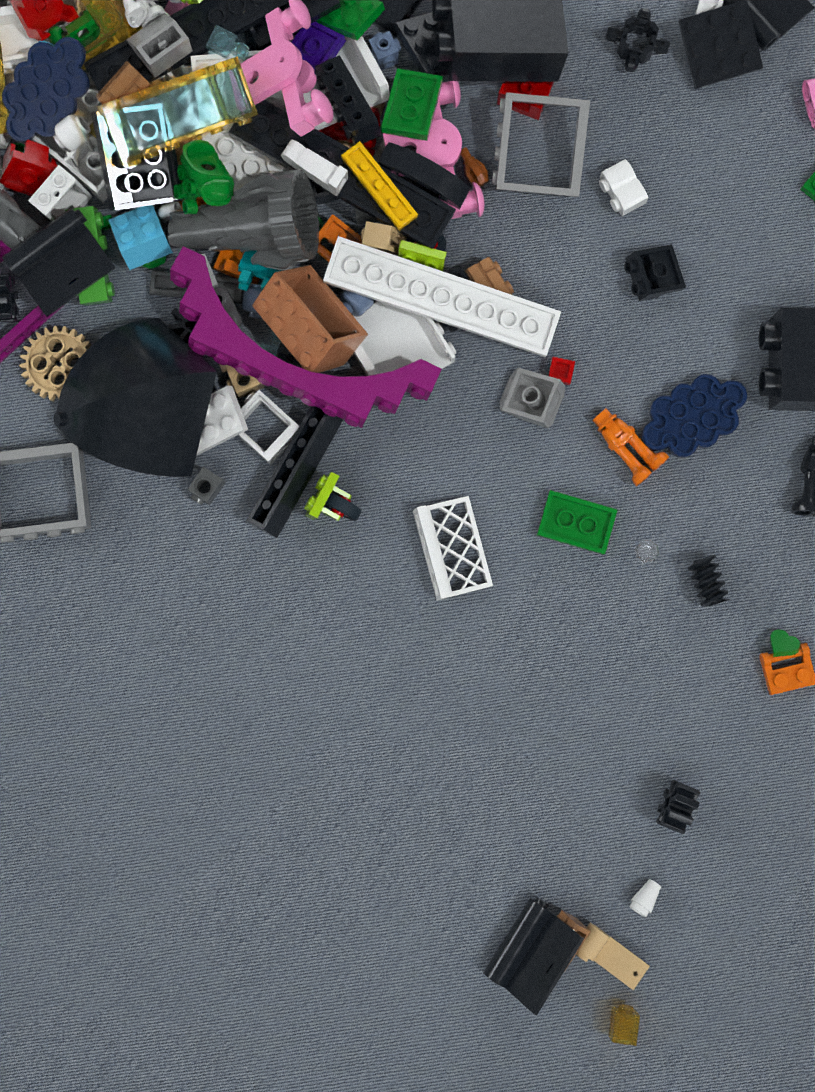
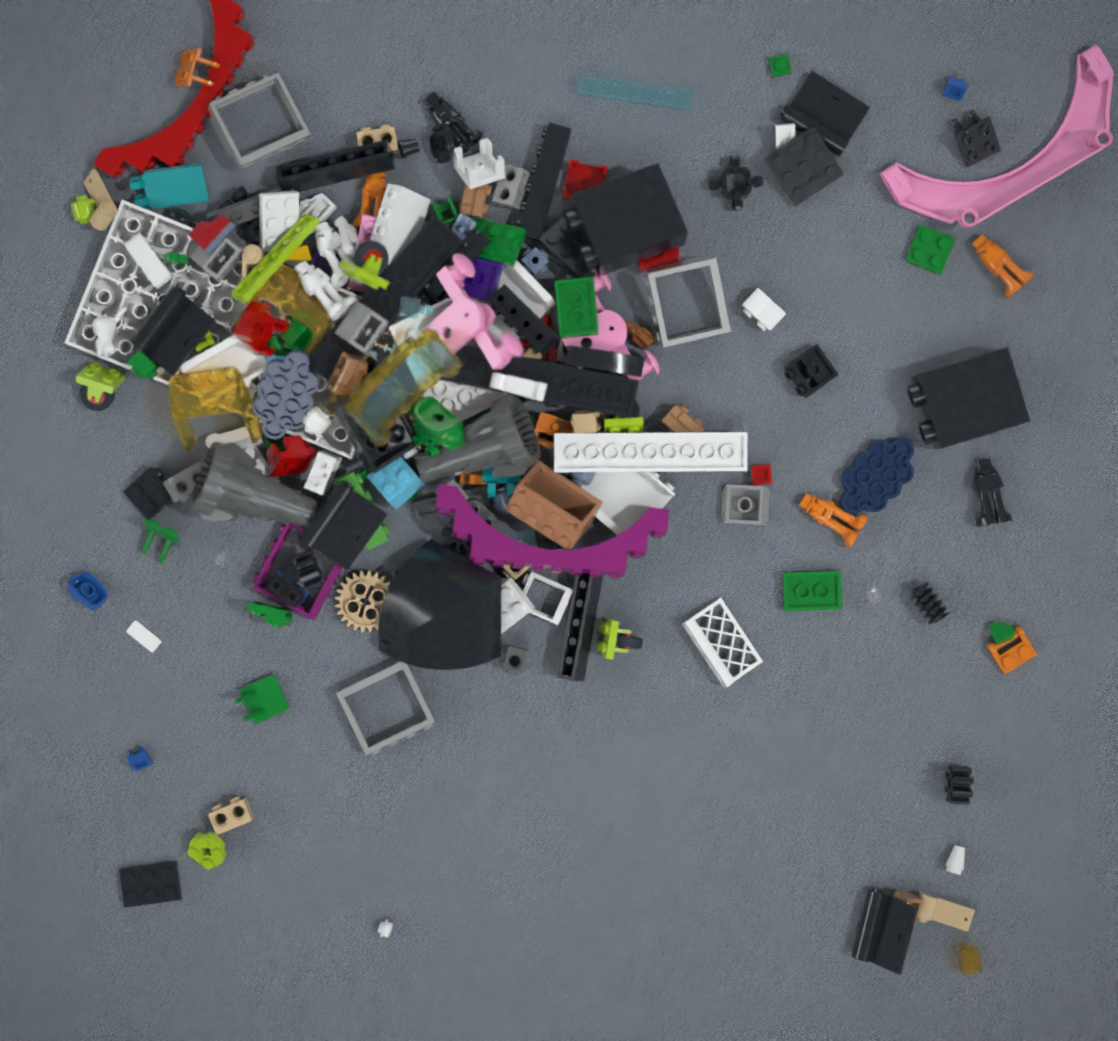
camera: 15 degrees left, 5 degrees up
(379, 185) = (573, 383): yellow tile -> none

